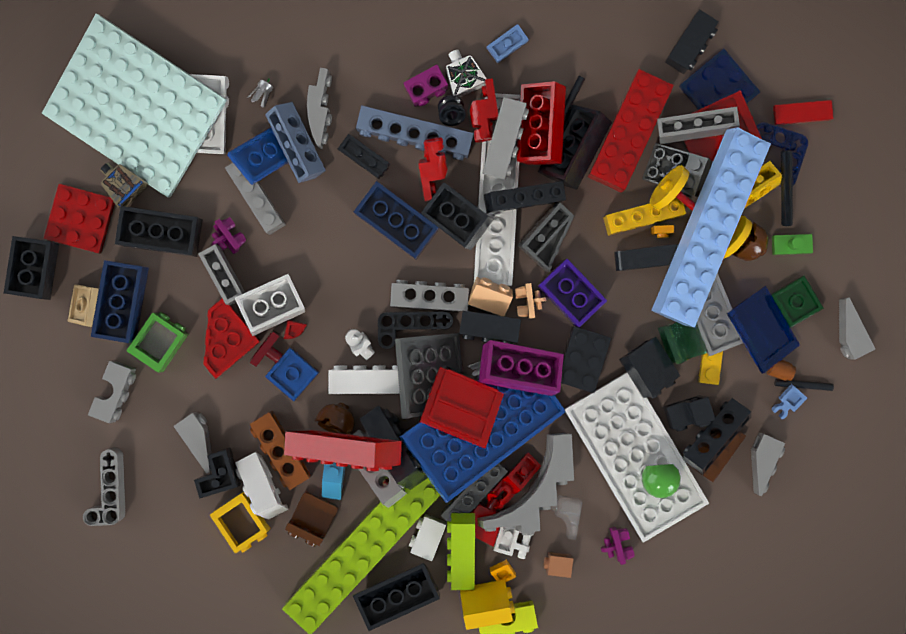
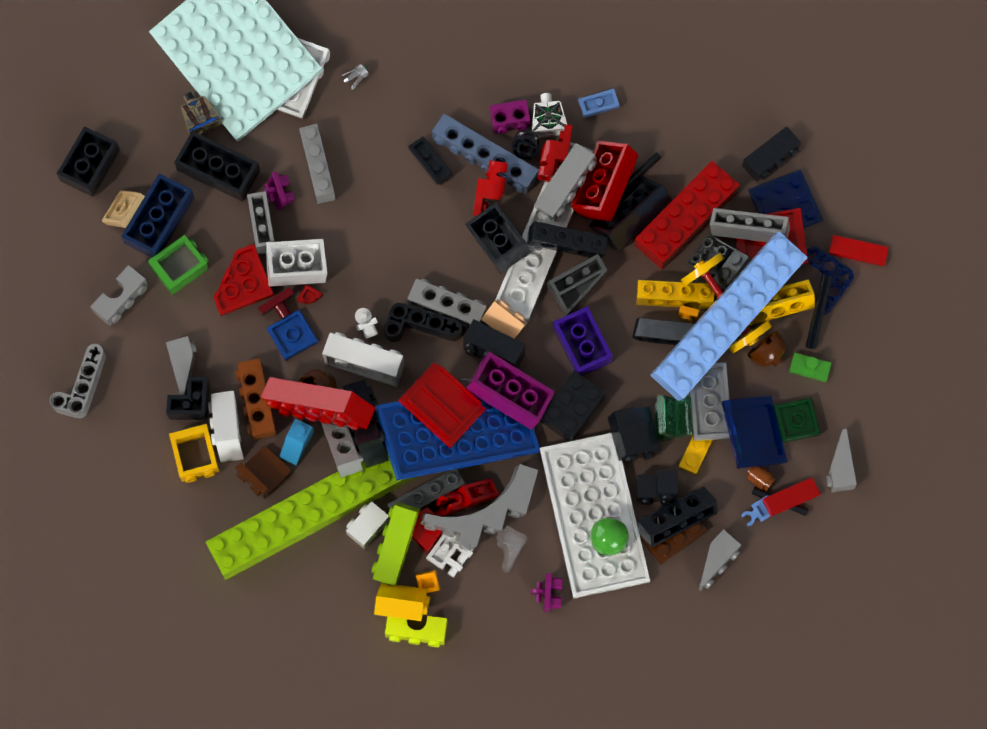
camera: 20 degrees right, 15 degrees down
(79, 218) = (148, 134): red plate -> none
(258, 156) = (336, 128): blue tile -> none
(295, 142) = (371, 127): sand blue brick -> none
(318, 115) = (401, 108): light grey slope -> none
(396, 220) = (440, 225): dark blue brick -> none
(396, 596) = (318, 567): black slope -> none
(418, 365) = (414, 353): dark grey plate -> none
(526, 292) = (539, 329): light nougat hips -> none
(558, 564) = (484, 592): nougat brick -> none
(816, 379) = (791, 497): none -> red tile

